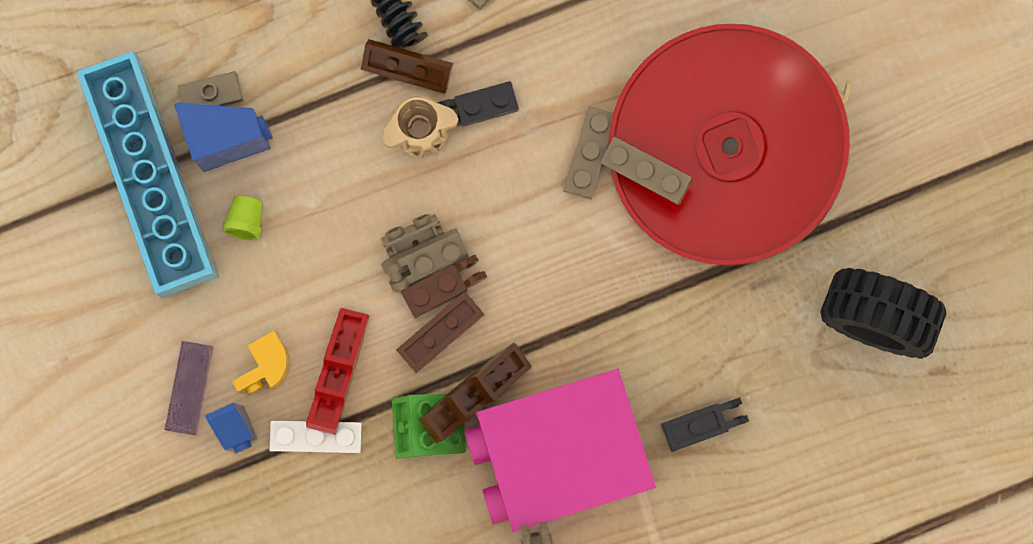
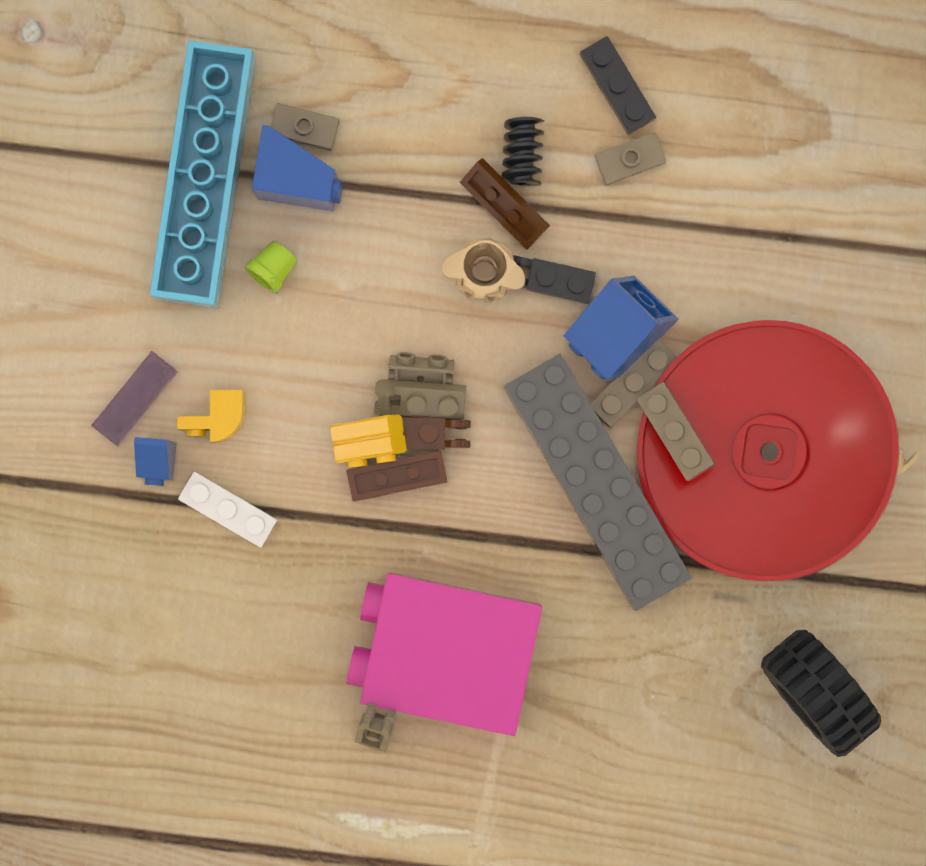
camera: 30 degrees right, 5 degrees up
(337, 371) = (281, 459): red slope -> none
(400, 314) = (368, 439): none -> yellow brick
(411, 436) = (338, 557): bright green bracket -> none
(475, 392) = (398, 551): reddish brown slope -> none
(553, 113) = (619, 326): none -> blue slope
(605, 247) = (597, 482): none -> dark grey brick
(700, 425) = (592, 698): black hinge -> none

